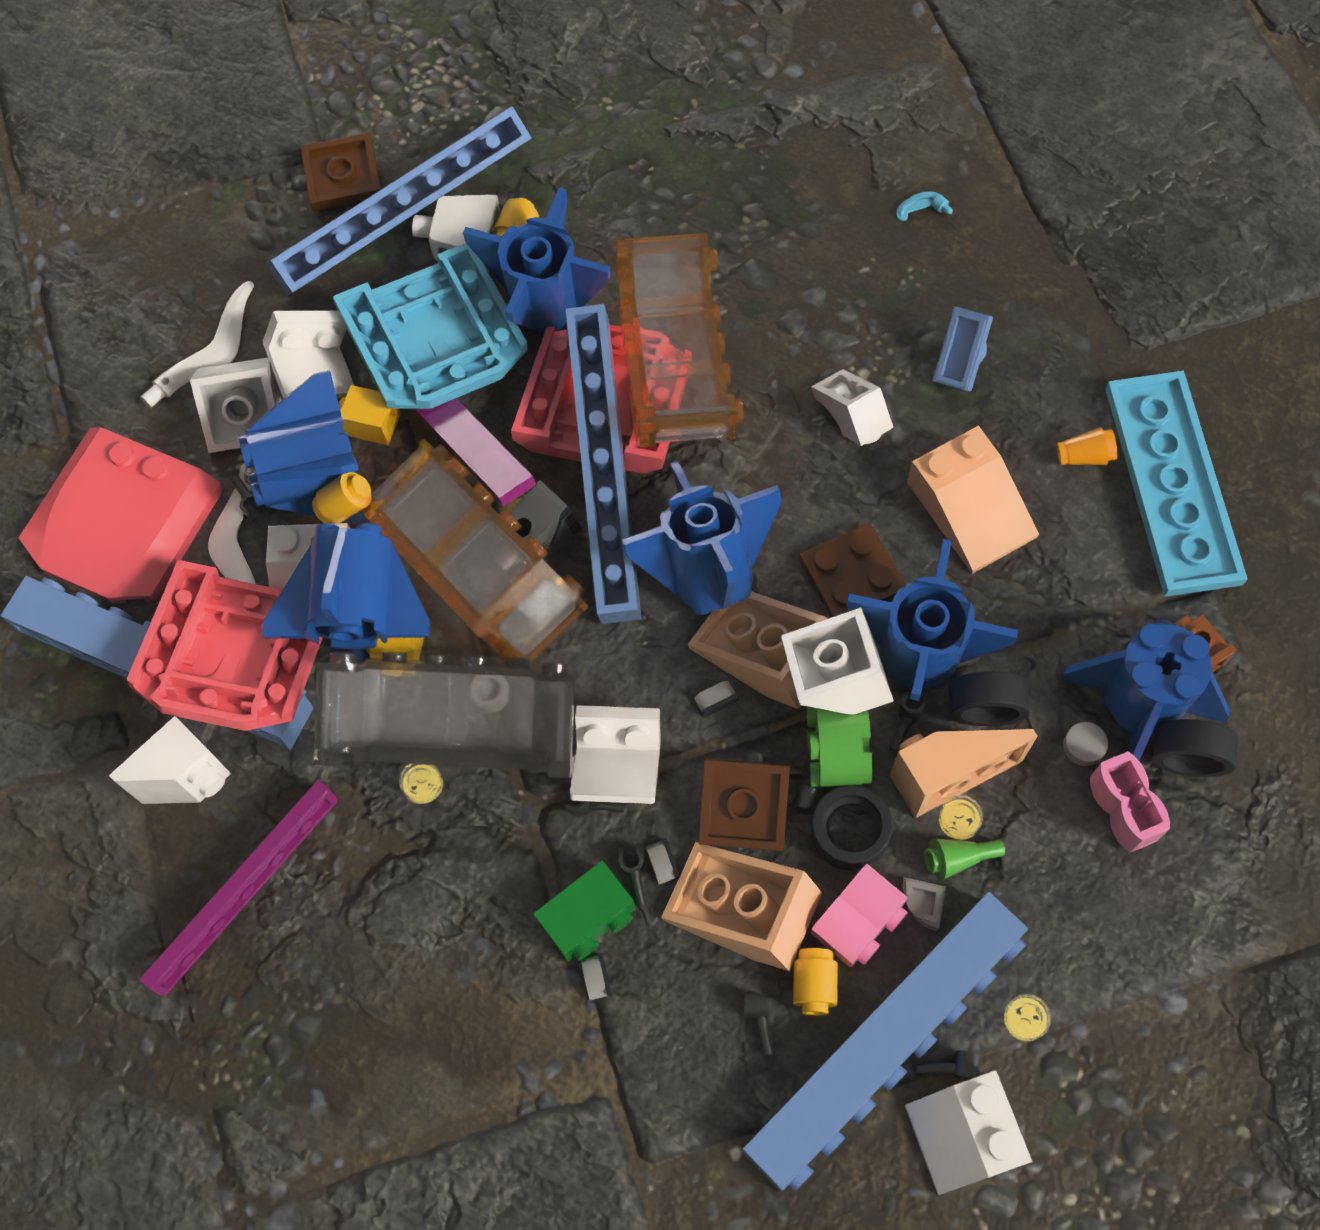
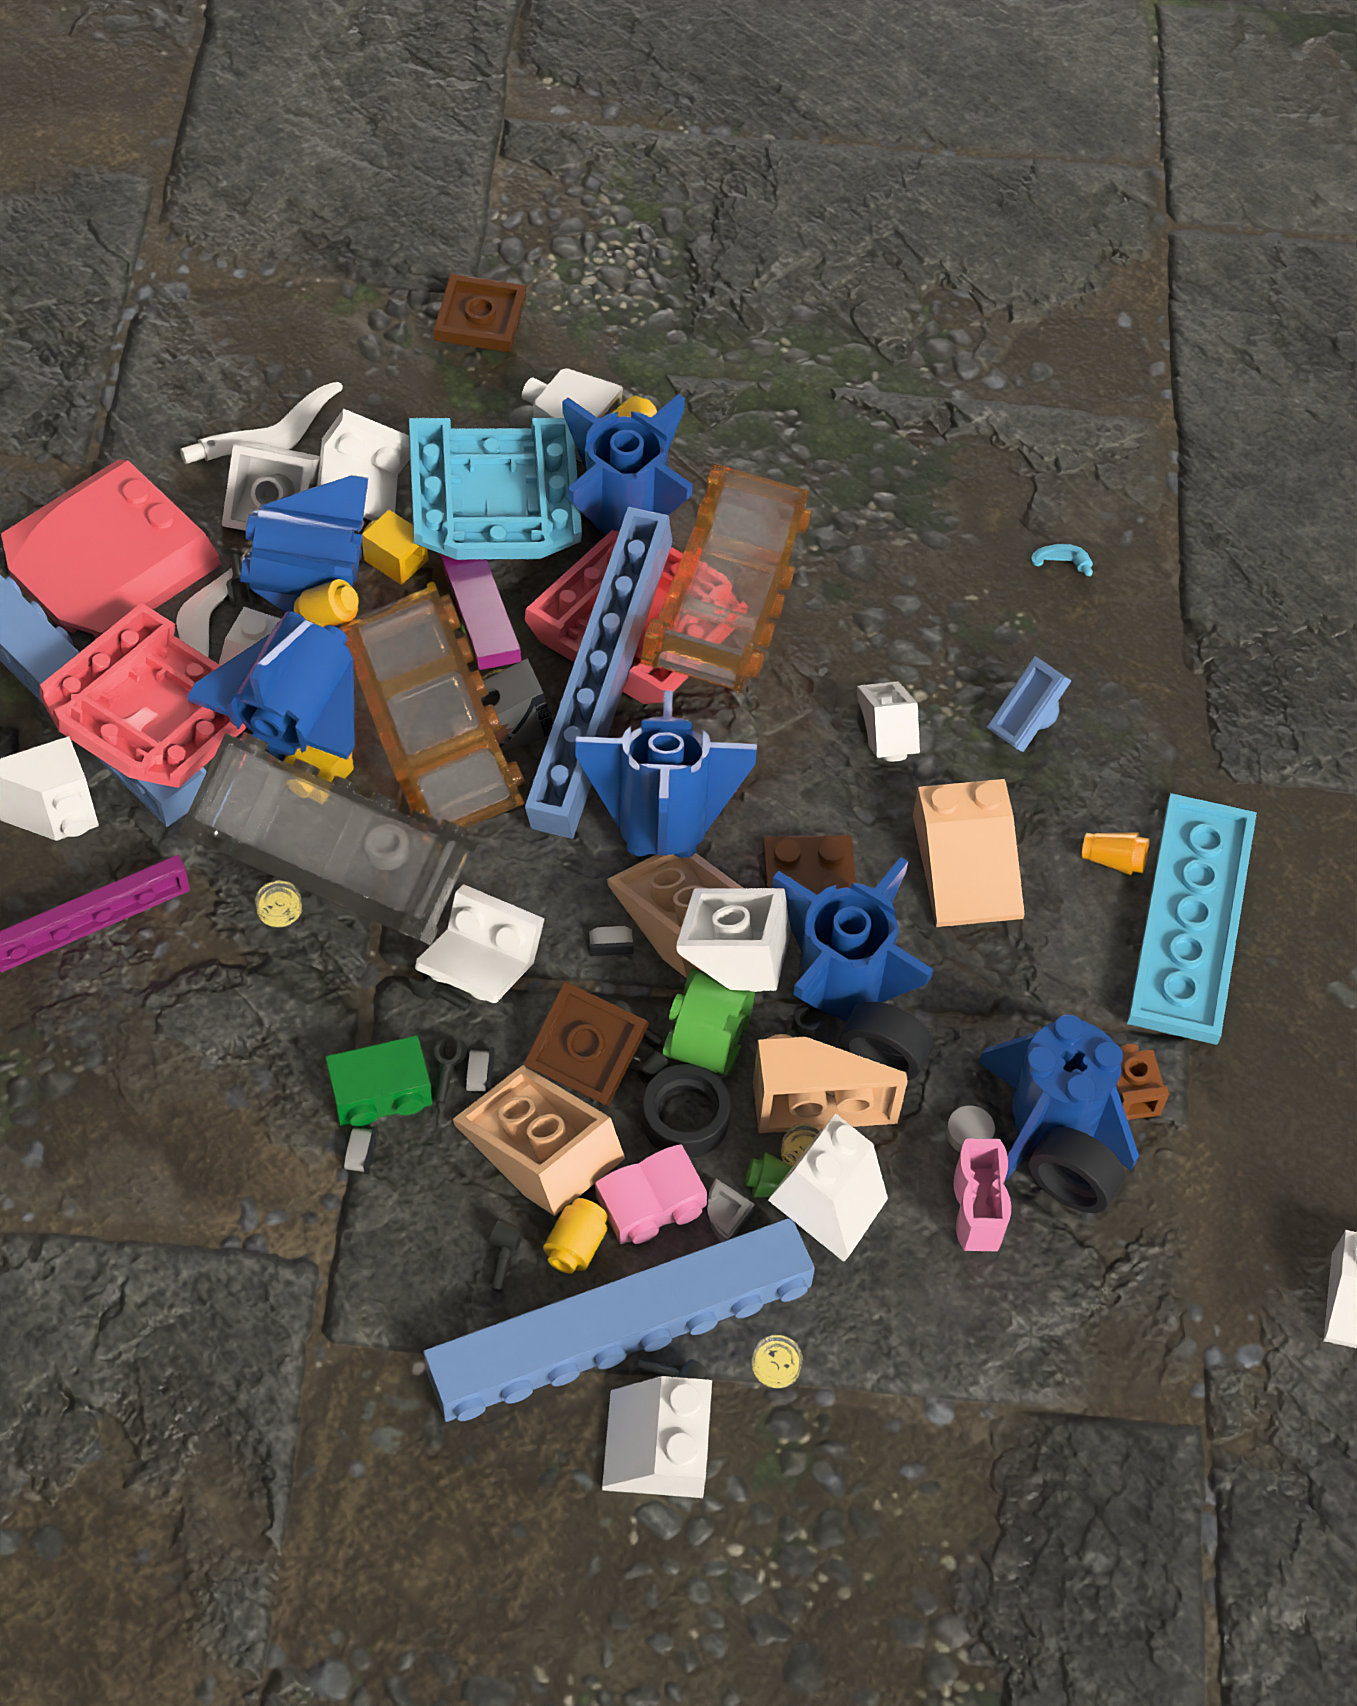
camera: 15 degrees right, 10 degrees down
(398, 201) = (521, 358): medium blue brick -> none
(1007, 849) = (834, 1188): none -> white slope

